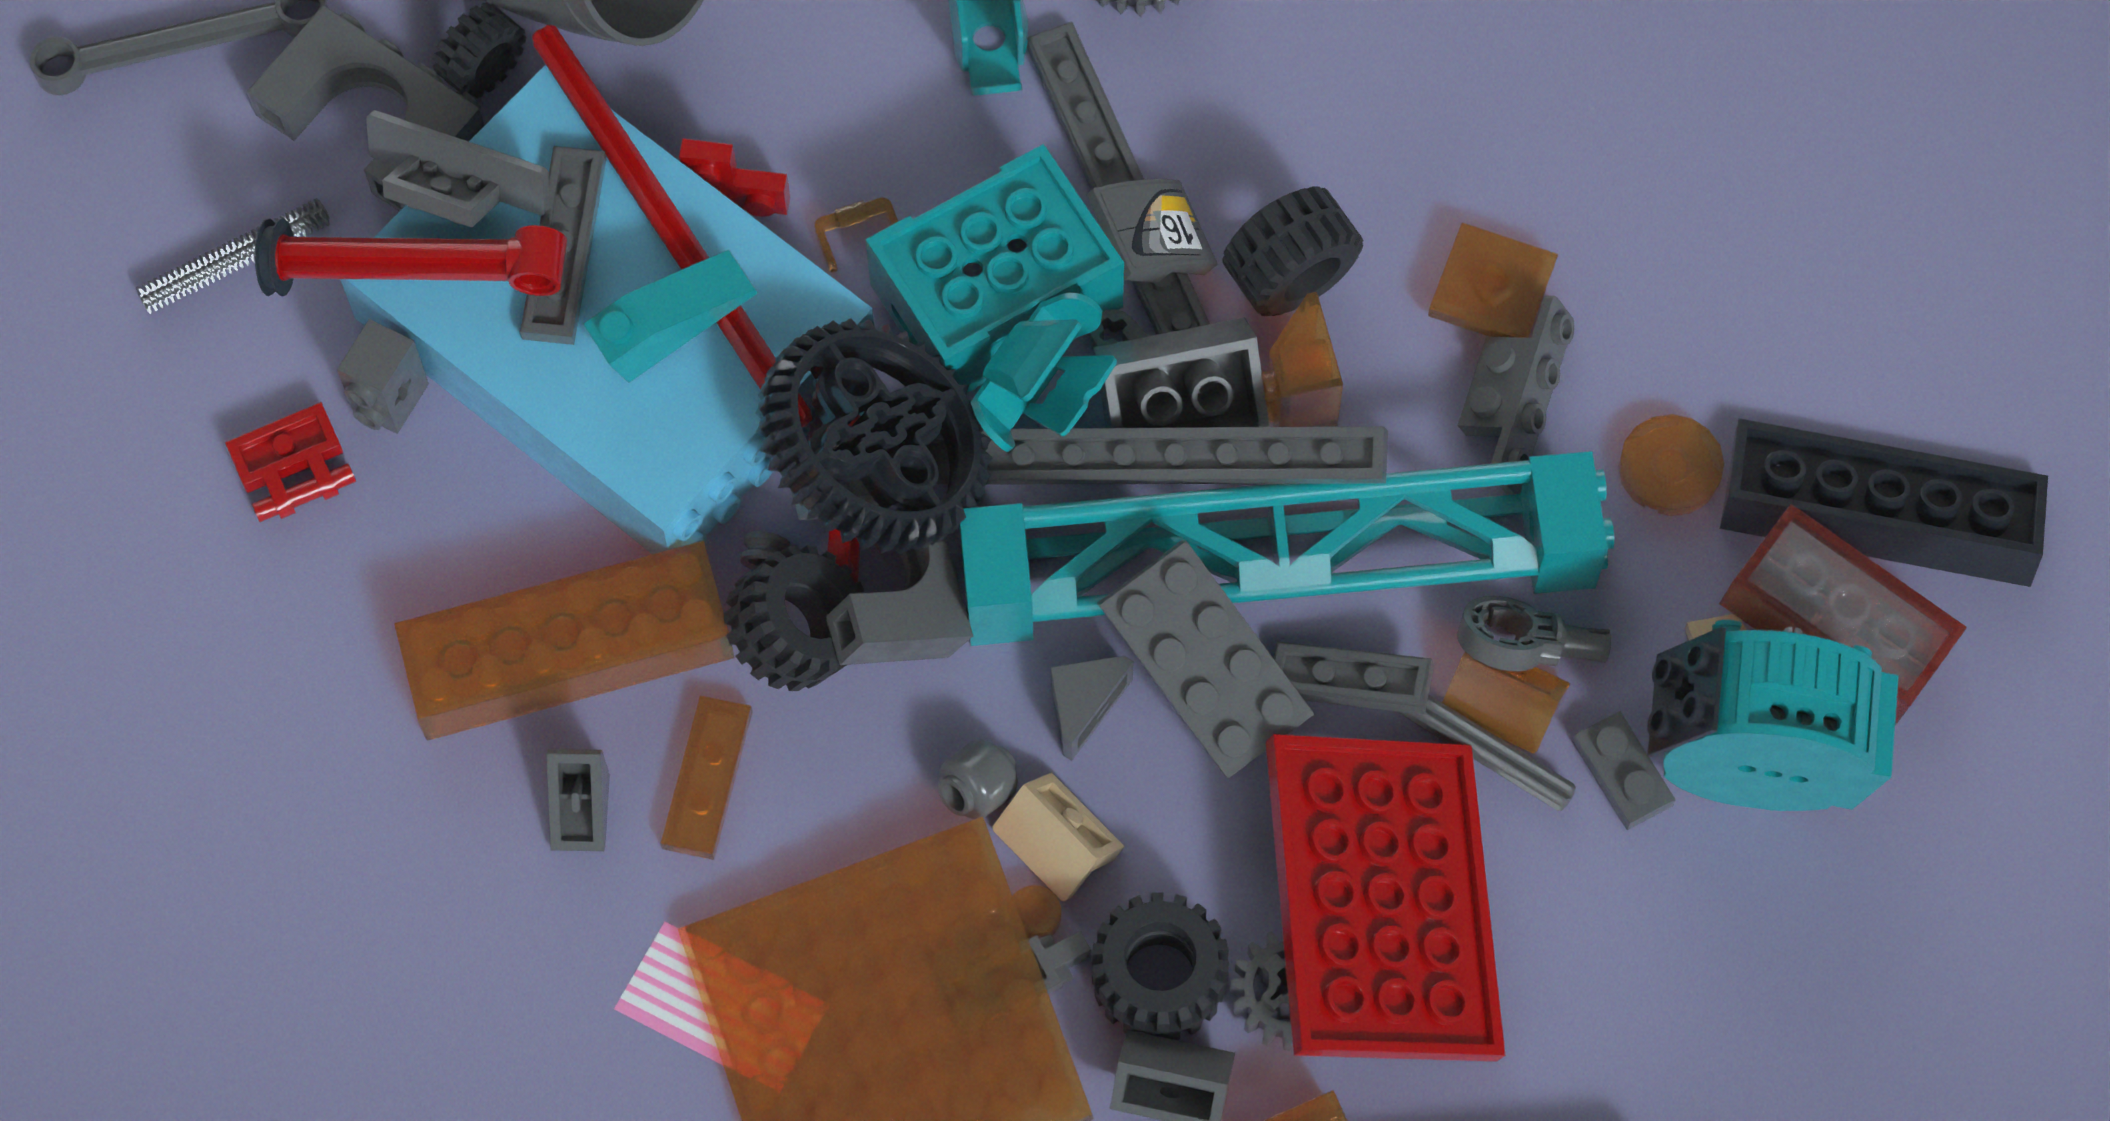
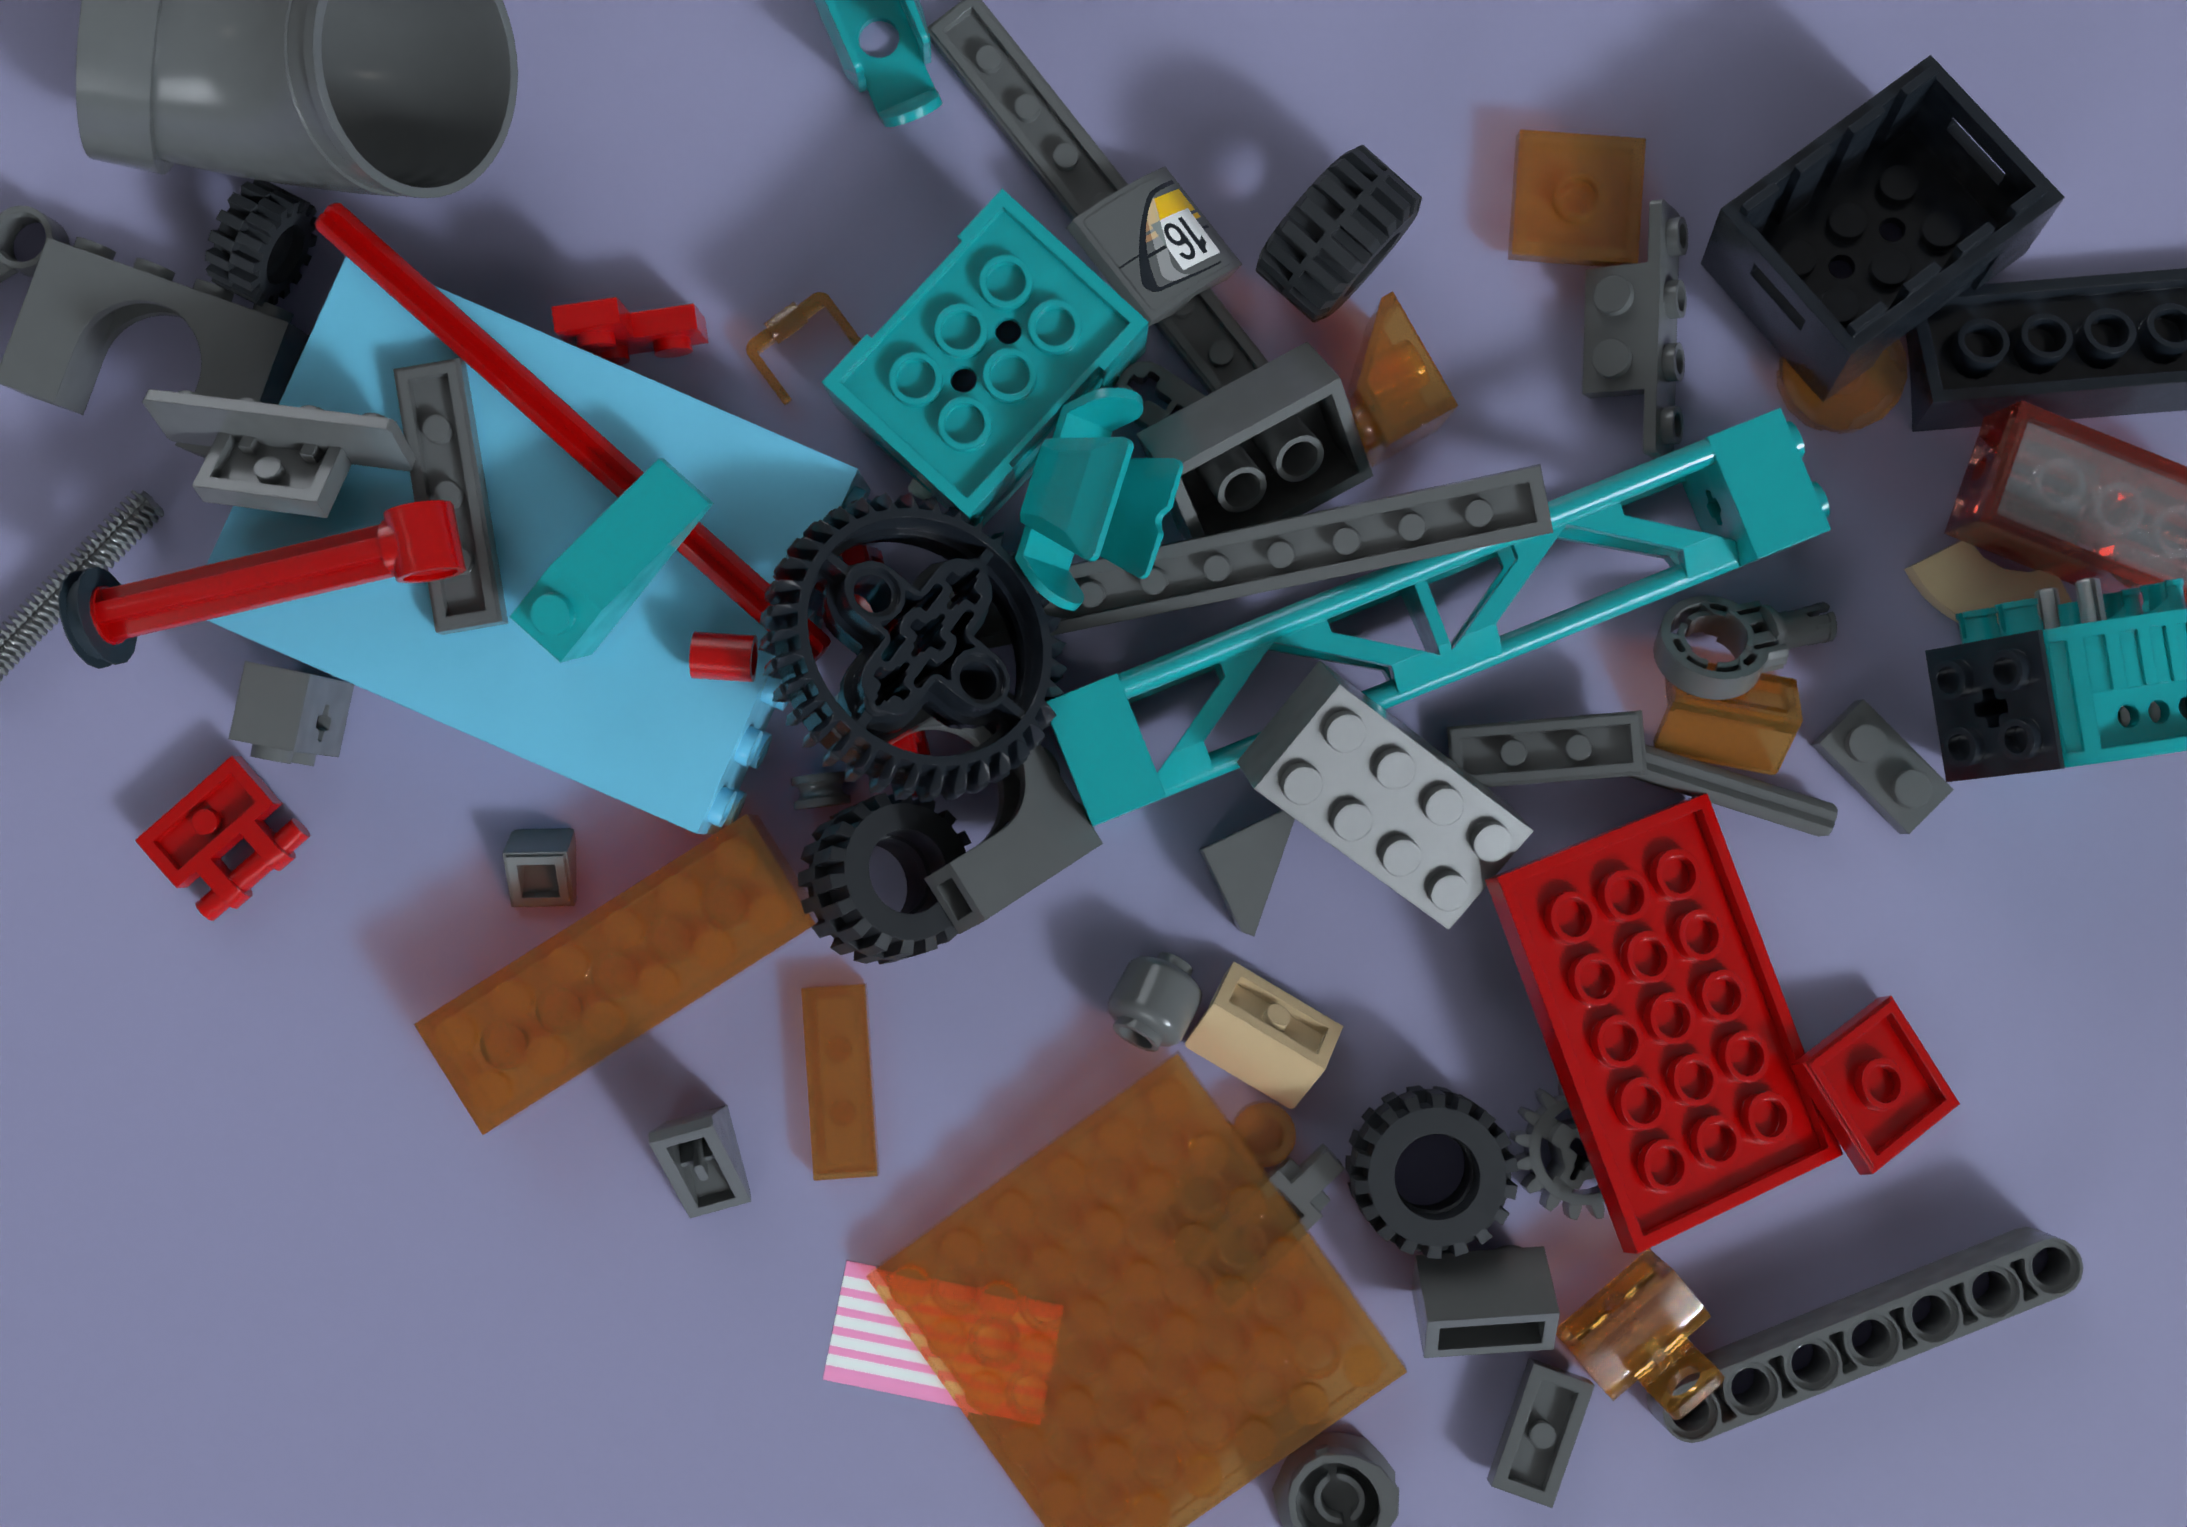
camera: 20 degrees left, 20 degrees up
(525, 555) = (541, 867): none -> dark grey slope
(728, 405) = (723, 656): none -> red hinge
(1547, 1008) = (1875, 1085): none -> red plate
(1688, 327) = (1881, 164): none -> black container

